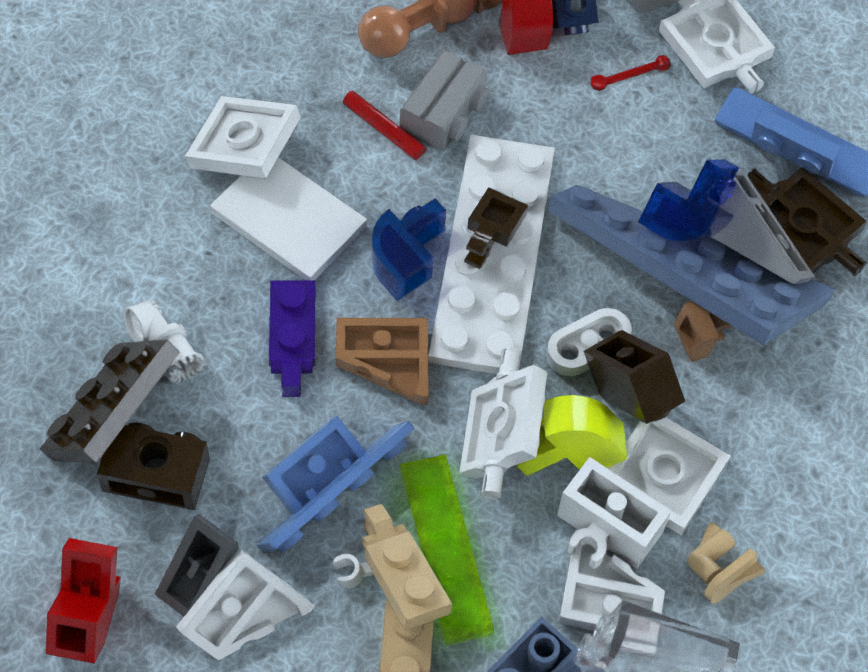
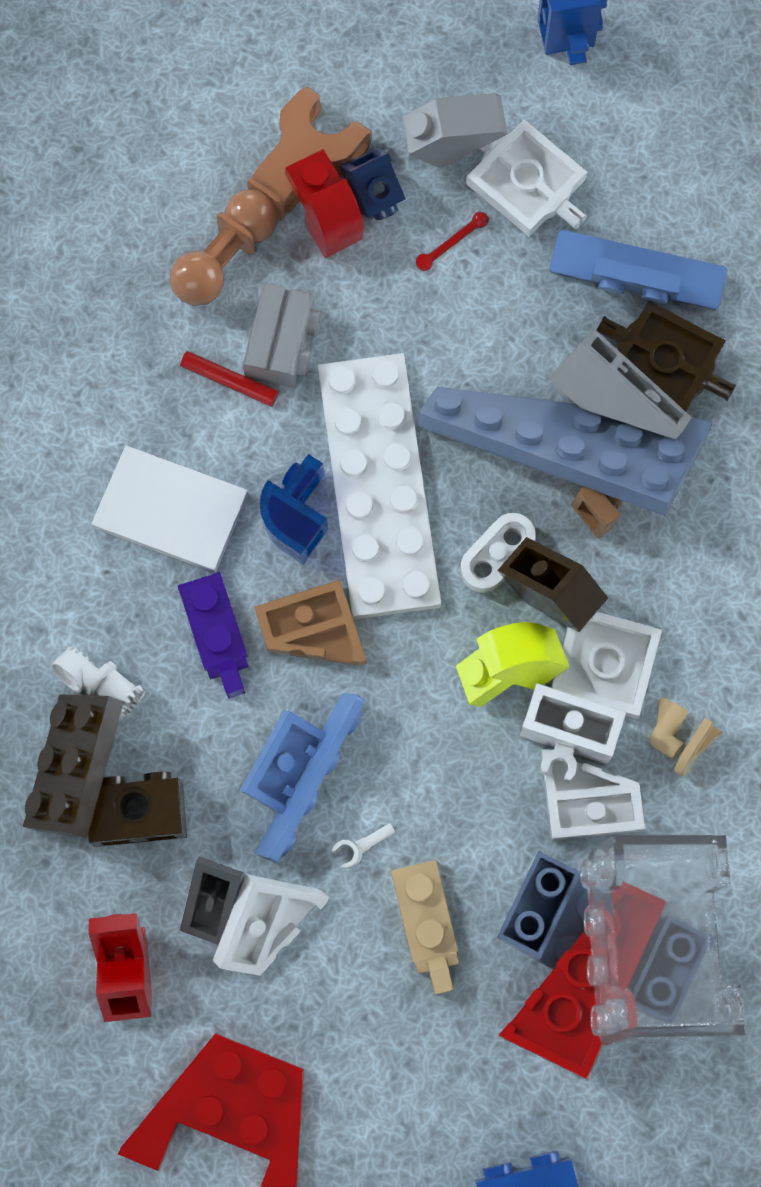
camera: 10 degrees left, 15 degrees up
(243, 137) = (98, 441): white plate -> none
(402, 571) = (398, 840): tan hinge -> none
(447, 547) = (428, 802): clear neon green plate -> none
(492, 220) = (372, 460): dark brown plate -> none
(503, 423) = (445, 668): white plate -> none
(693, 213) = (560, 397): clear blue brick -> none

